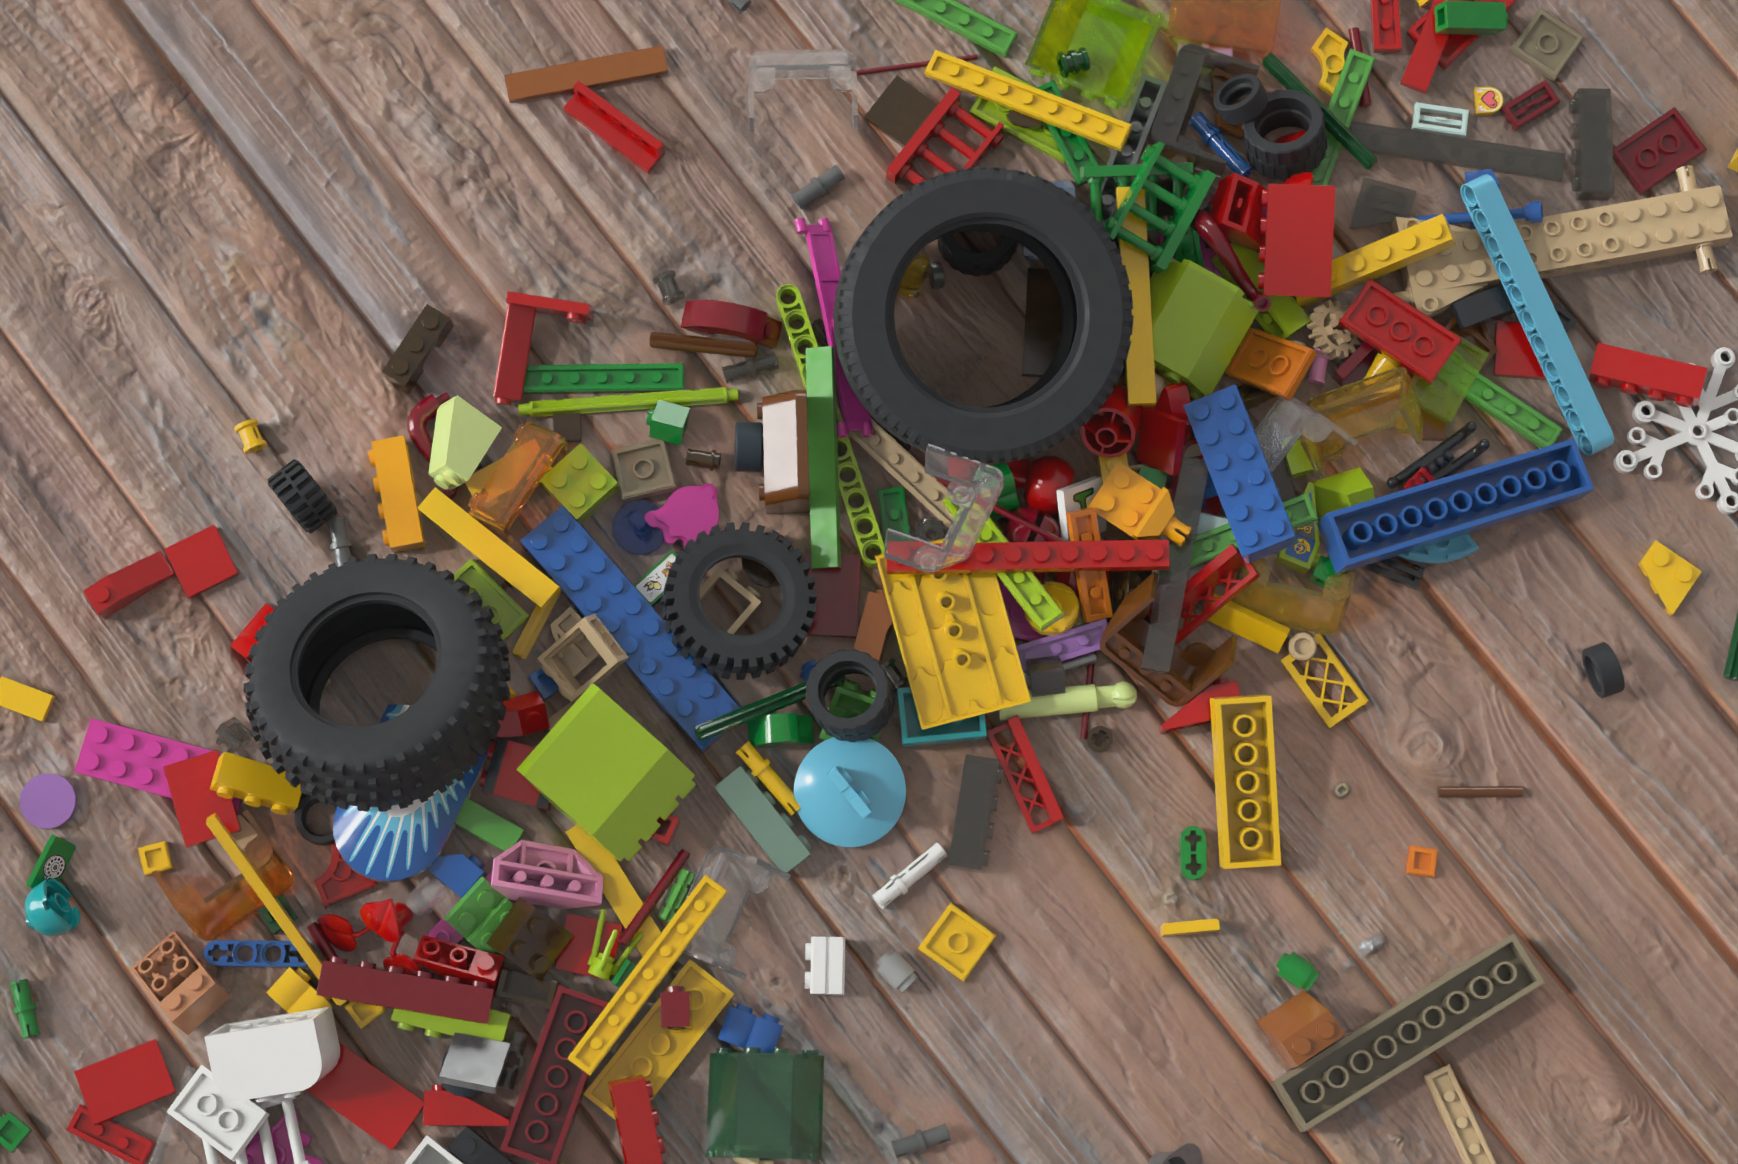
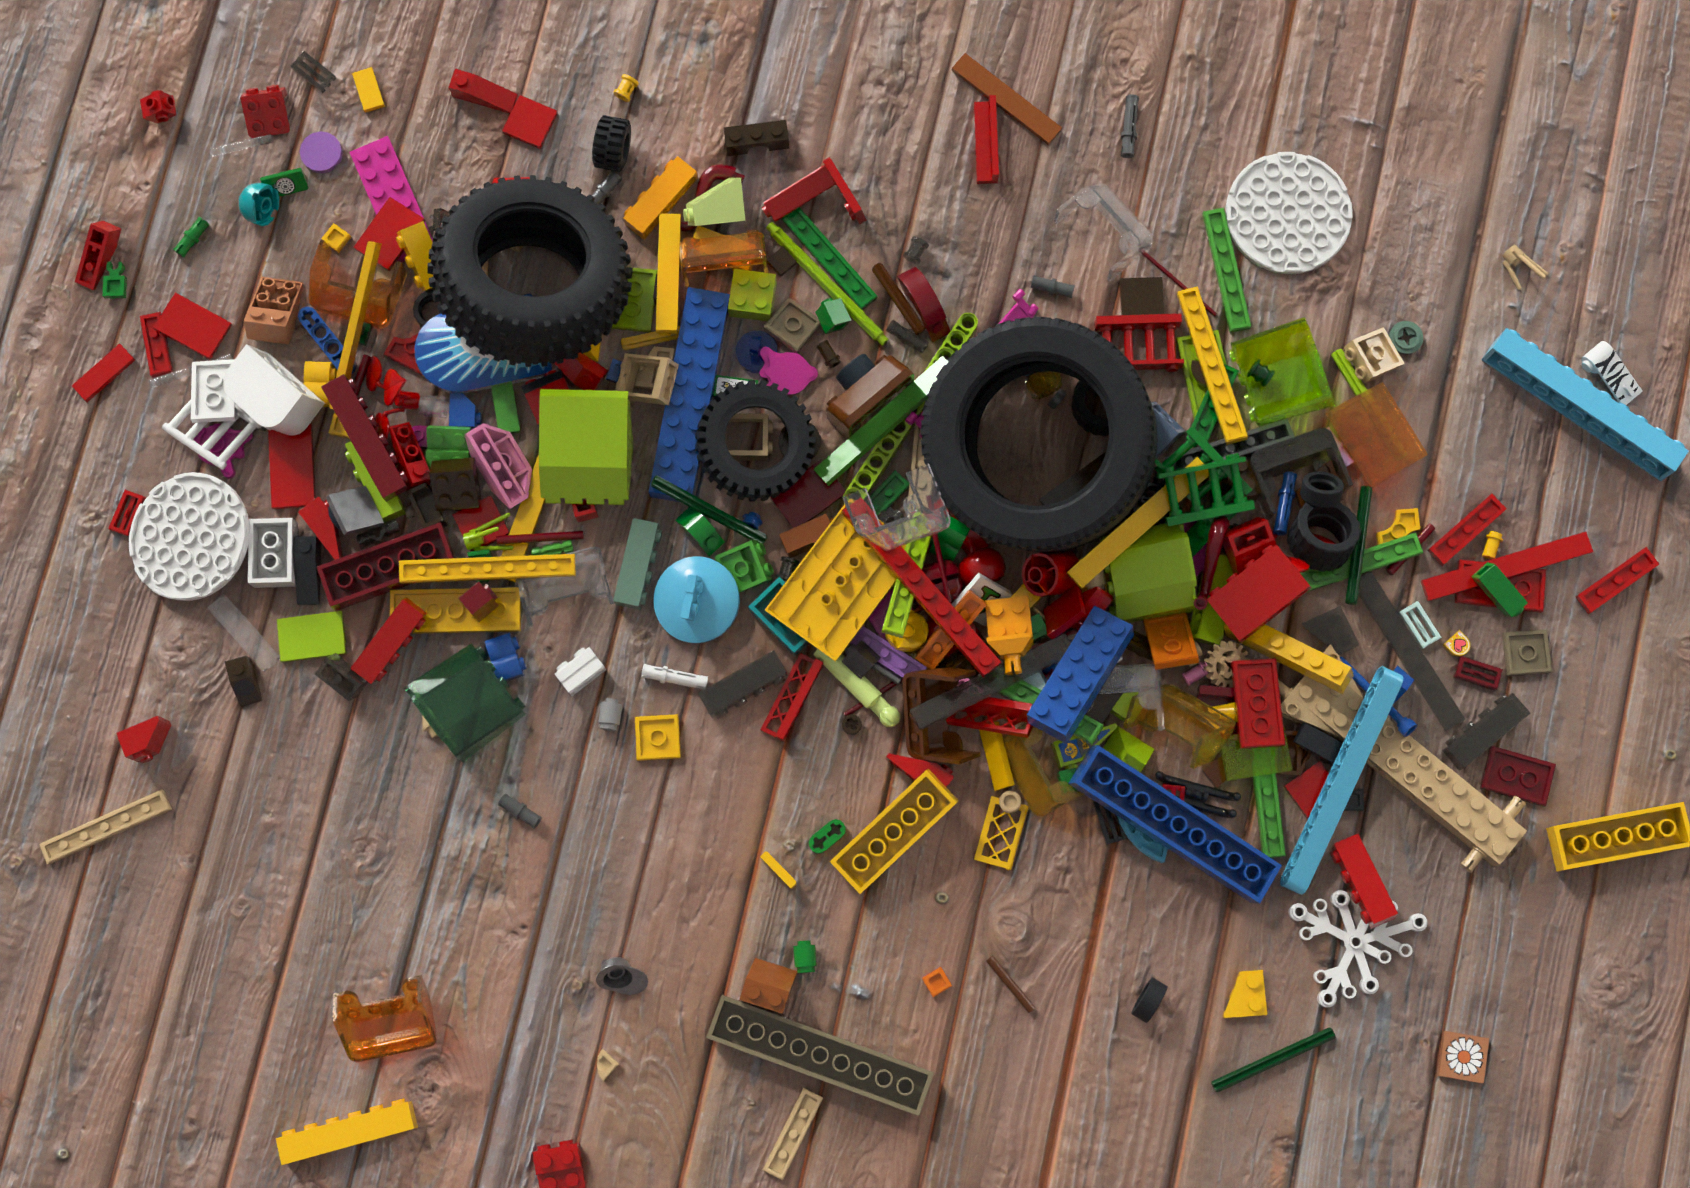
camera: 55 degrees right, 0 degrees up
(762, 769) = (665, 546): yellow pin -> none
(840, 664) = (745, 527): black tyre -> none

